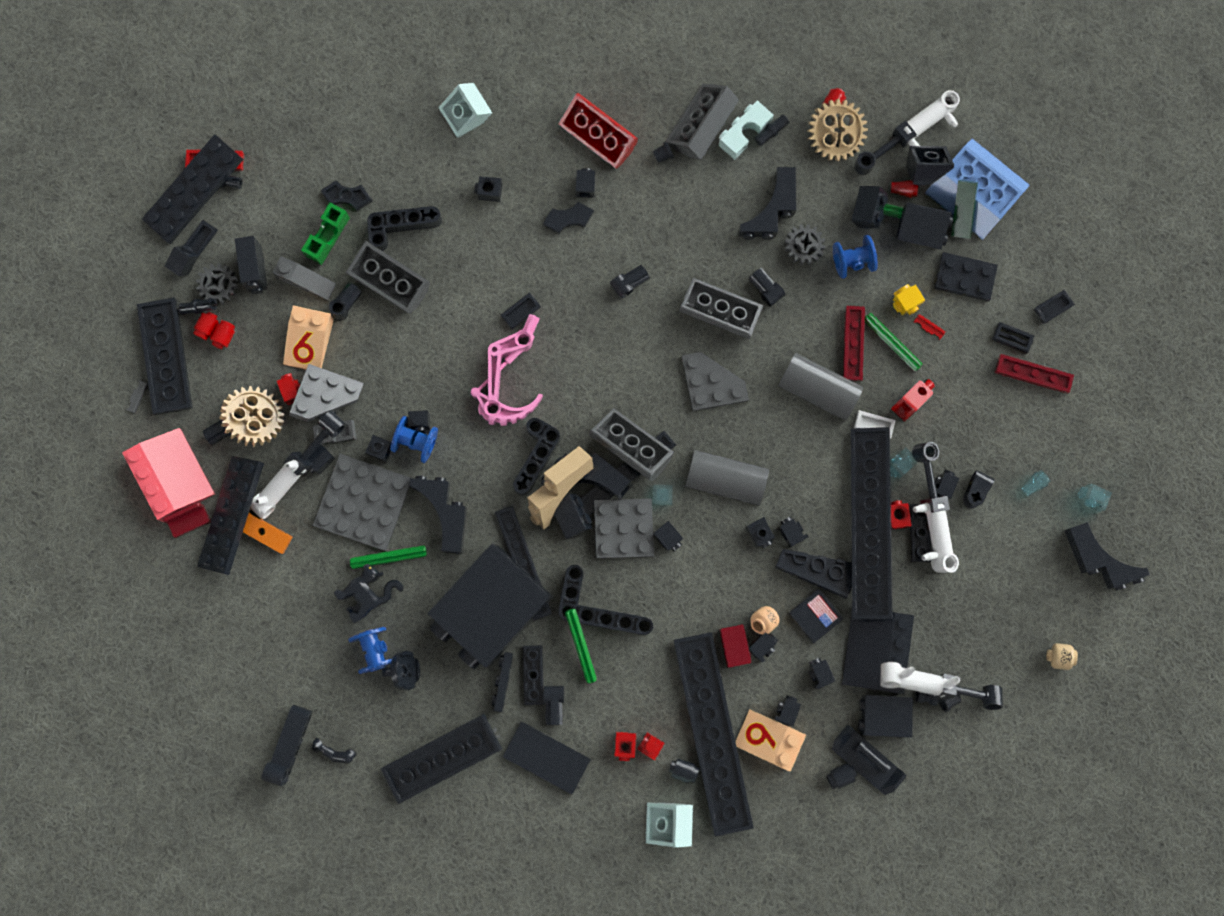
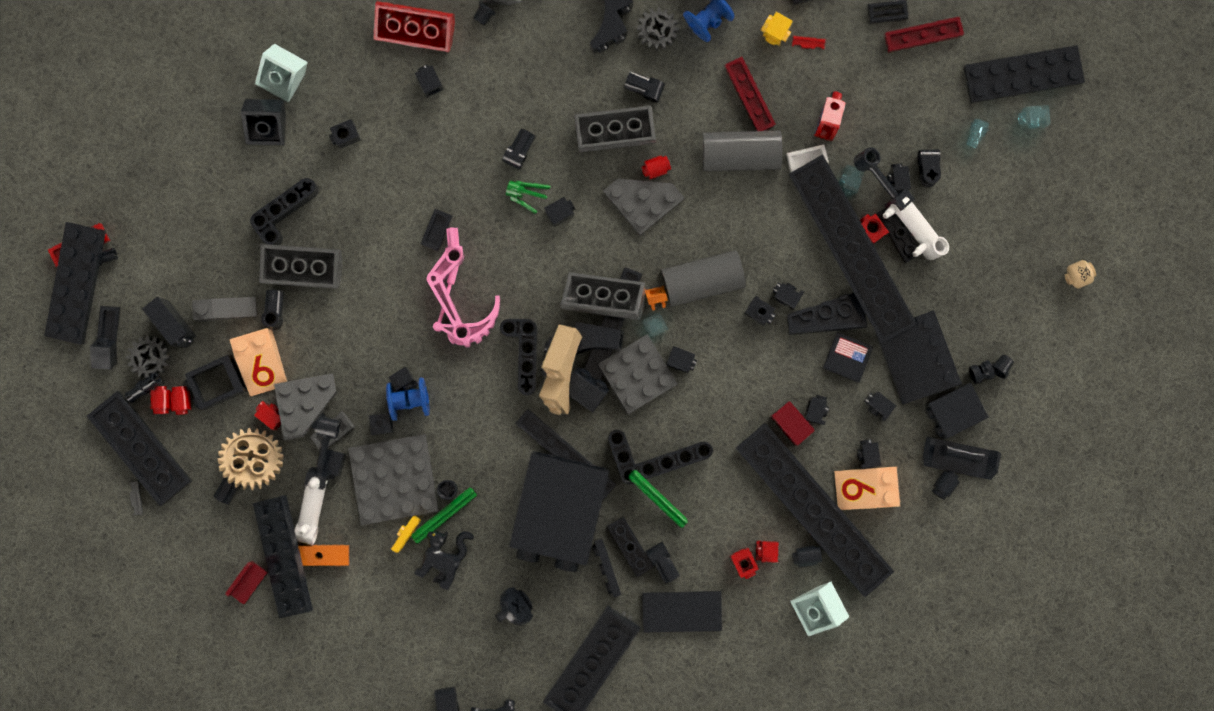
camera: 25 degrees left, 5 degrees up
(168, 473) = (205, 551): slope -> none
(279, 337) = (233, 373): none -> black window
(333, 222) = (221, 269): green arch -> none
(338, 194) = (211, 213): black tile -> none
(346, 554) = (405, 533): none -> yellow plate
(374, 649) = (479, 603): blue hose -> none
(403, 536) = (447, 489): none -> black wheel
(427, 142) = (264, 121): none -> black slope
(451, 516) = (480, 448): black arch -> none
(561, 219) = (425, 126): black tile -> none
(609, 314) = (516, 190): none -> green plant
(634, 352) = (560, 211): none -> black brick
(677, 469) = (656, 295): none -> orange tile
(739, 360) = (656, 167): none -> red brick
(764, 620) = (805, 386): light nougat head -> none
(893, 342) = (783, 74): green axle -> none
(942, 686) = (989, 360): white piece -> none
(1092, 556) = (1061, 172): black arch -> none
(1105, 455) = (1024, 74): none -> black plate

